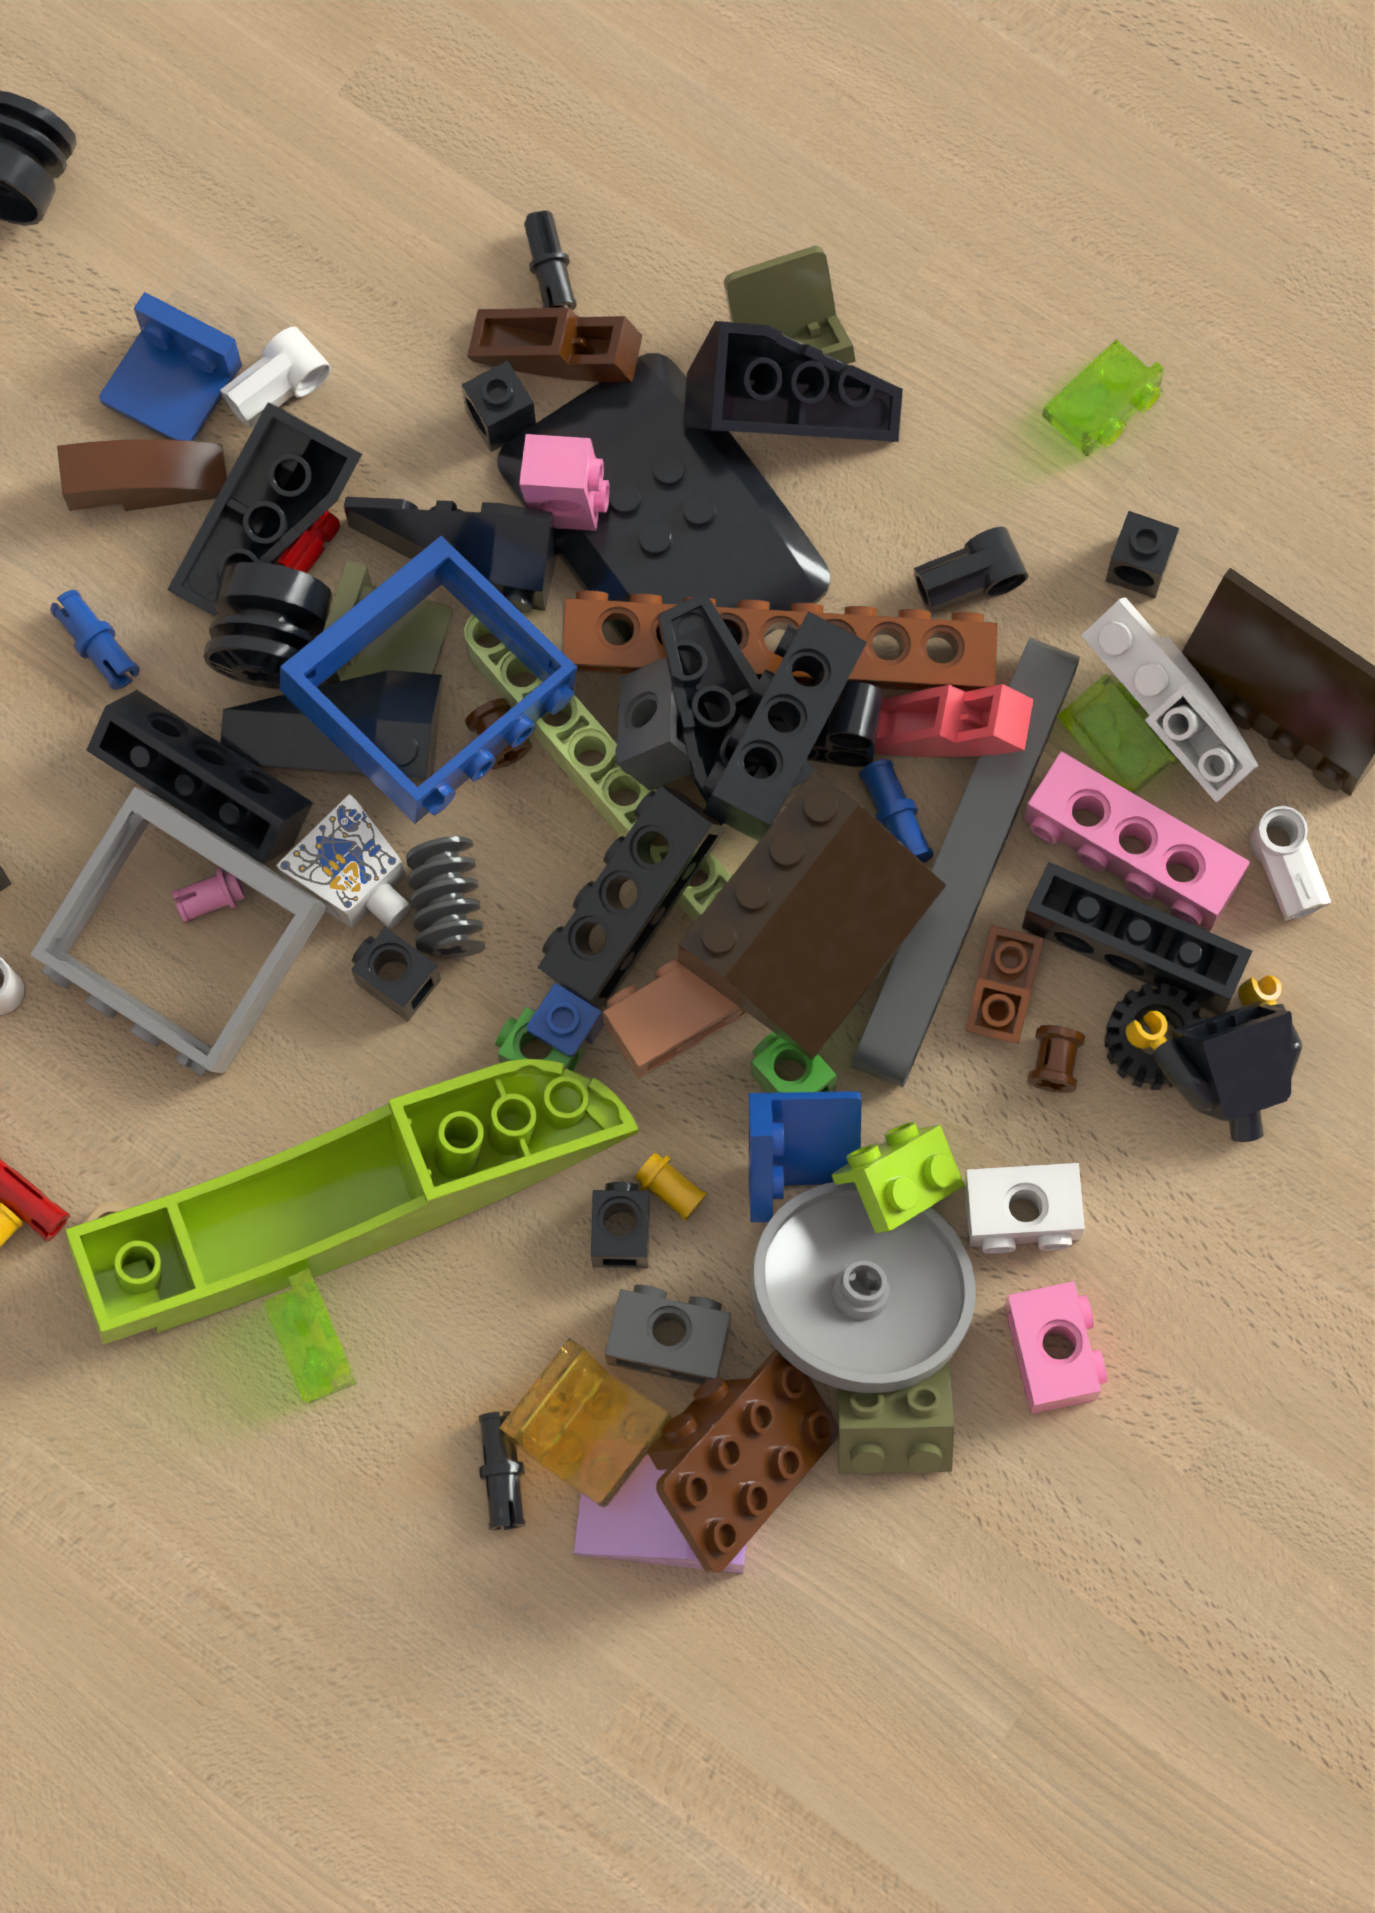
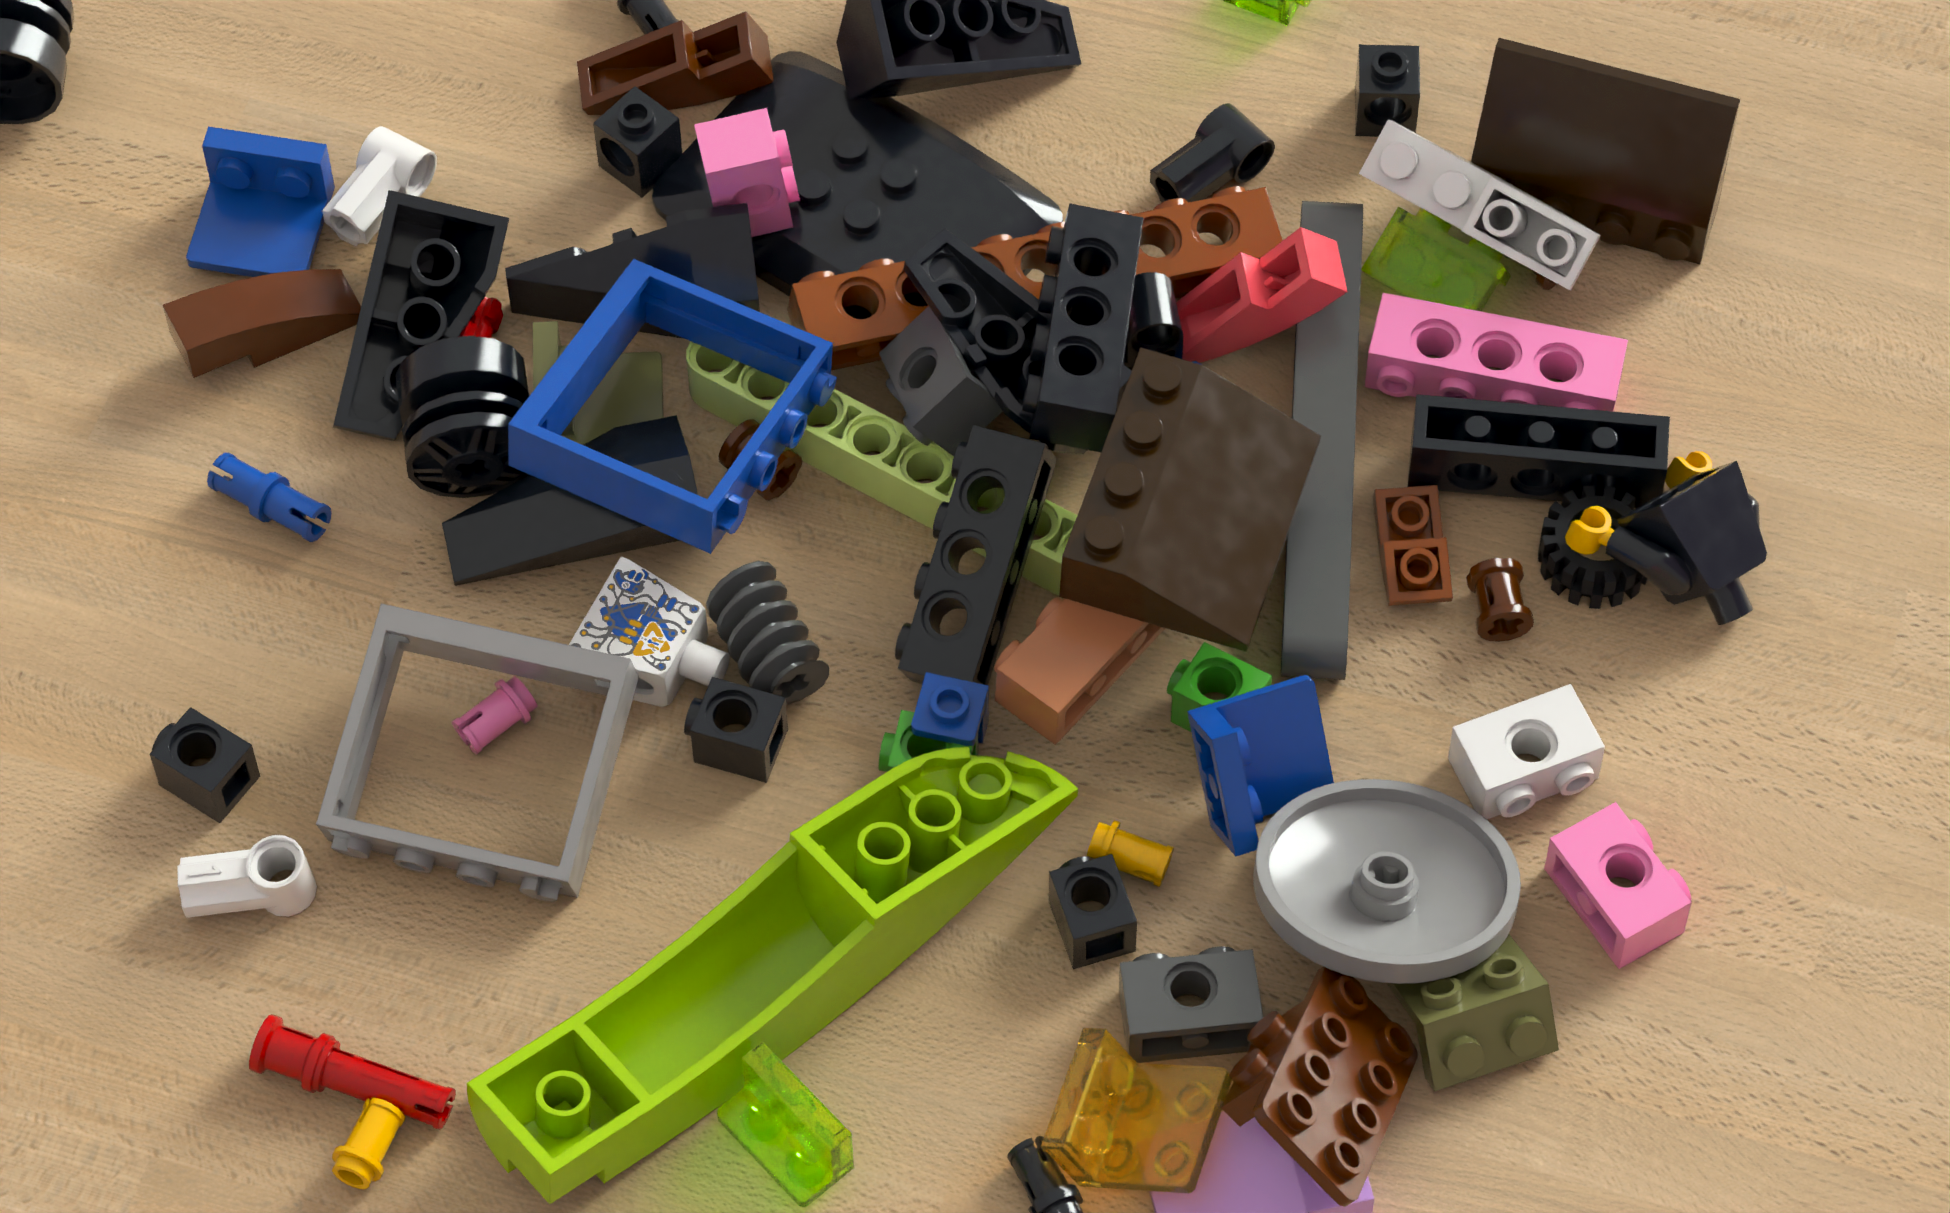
camera: 20 degrees left, 15 degrees down
(199, 776) = (367, 570): black brick -> none
(902, 1174) = (1384, 754): lime bracket -> none
(1292, 867) = (1667, 337): white piece -> none

